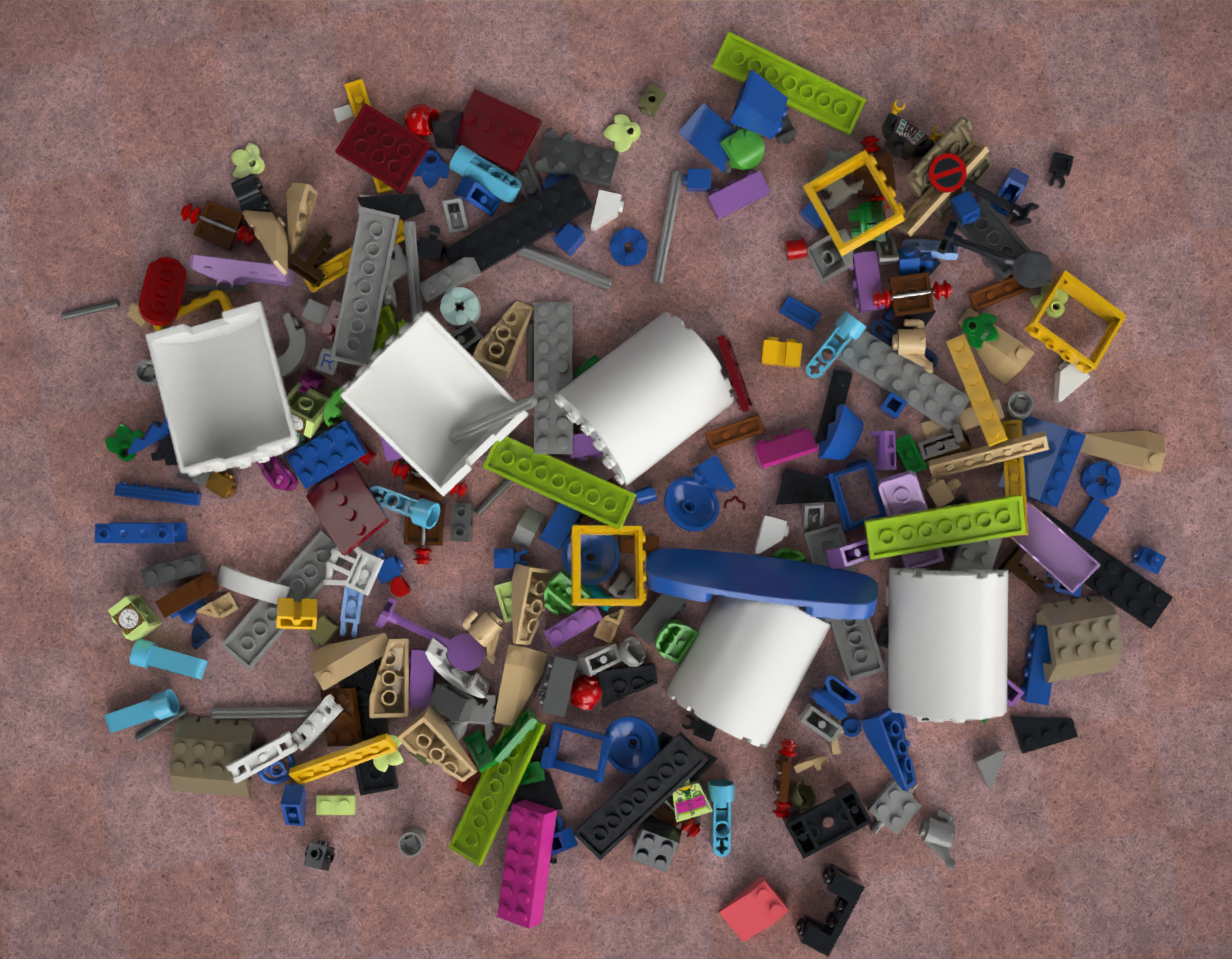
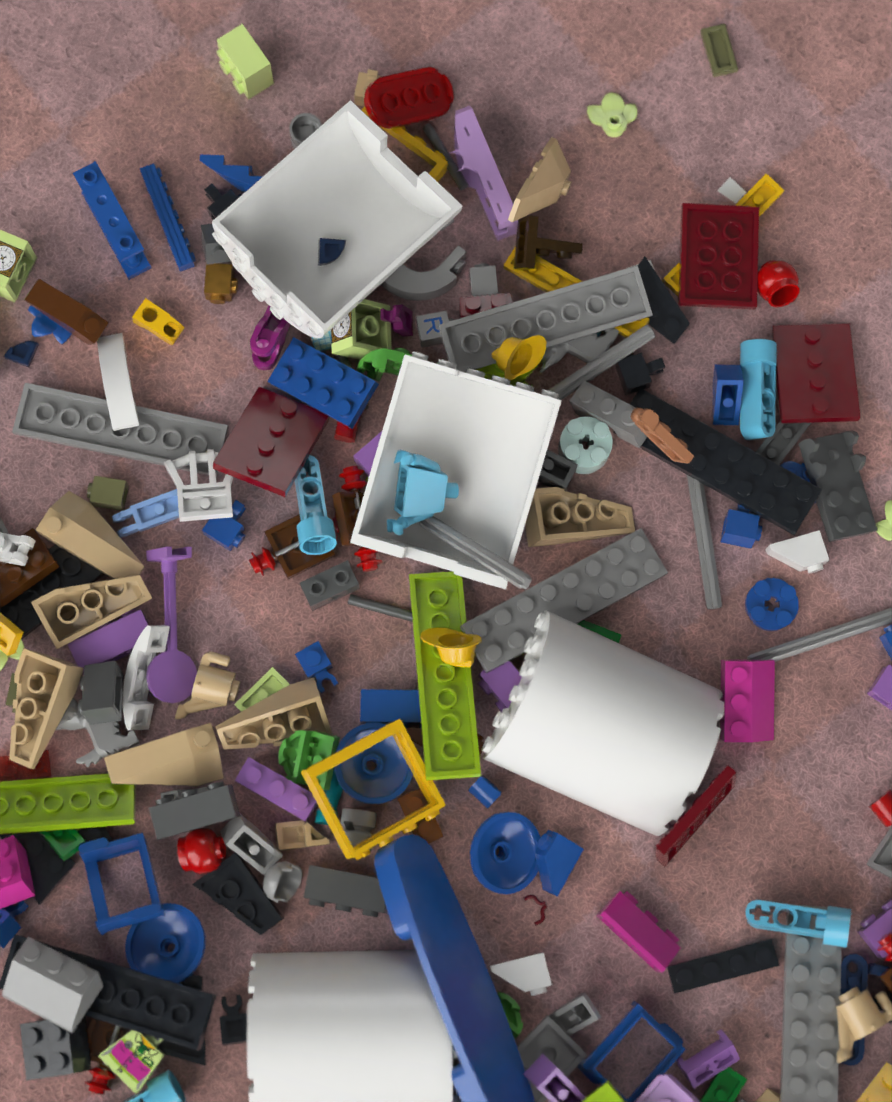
camera: 60 degrees right, 10 degrees down
(77, 387) = (244, 61): none -> yellowish green brick
(90, 309) = (341, 31): dark grey bar -> none
(123, 439) = (206, 144): green plate -> none
(173, 570) = (86, 282): dark grey brick -> none
(218, 224) = (521, 120): reddish brown plate -> none
(220, 607) = (71, 359): tan slope -> none
(226, 538) = (157, 322): none -> yellow leg
(240, 402) = (329, 250): none -> dark blue tile
(241, 65) = (719, 50): none -> olive tile
(250, 195) = (577, 136): black brick -> none
(296, 614) = (111, 449): yellow brick -> none
(300, 206) = (596, 199): tan wedge -> none
(380, 318) = (519, 355): none -> yellow piece
(399, 587) = (209, 555): red brick -> none
(432, 171) = (724, 326): blue plate -> none
(433, 432) = (419, 490): none -> medium azure torso
(446, 128) = (784, 316): black slope -> none
(455, 214) = (691, 380): light grey slope -> none
(480, 750) = (59, 761): green plate -> none
(482, 257) = (660, 435): none -> nougat hinge
(514, 735) = (100, 791): green plate -> none
(527, 528) = (364, 669): light grey slope -> none
(530, 353) = (580, 555): dark grey bar -> none
(543, 466) = (452, 645): none -> yellow piece
(618, 829) = (51, 984): none -> light grey slope
(675, 640) = (326, 927): bright green slope -> none
(680, 298) = (747, 700): none -> dark pink slope
(734, 432) = (623, 858): dark orange tile -> none
(781, 353) = (752, 861): yellow brick -> none
(800, 313) = (814, 858): blue tile -> none
(803, 488) = (603, 981): black wing -> none
(841, 435) = (696, 993): blue slope -> none
(892, 405) = (769, 1037): blue brick -> none

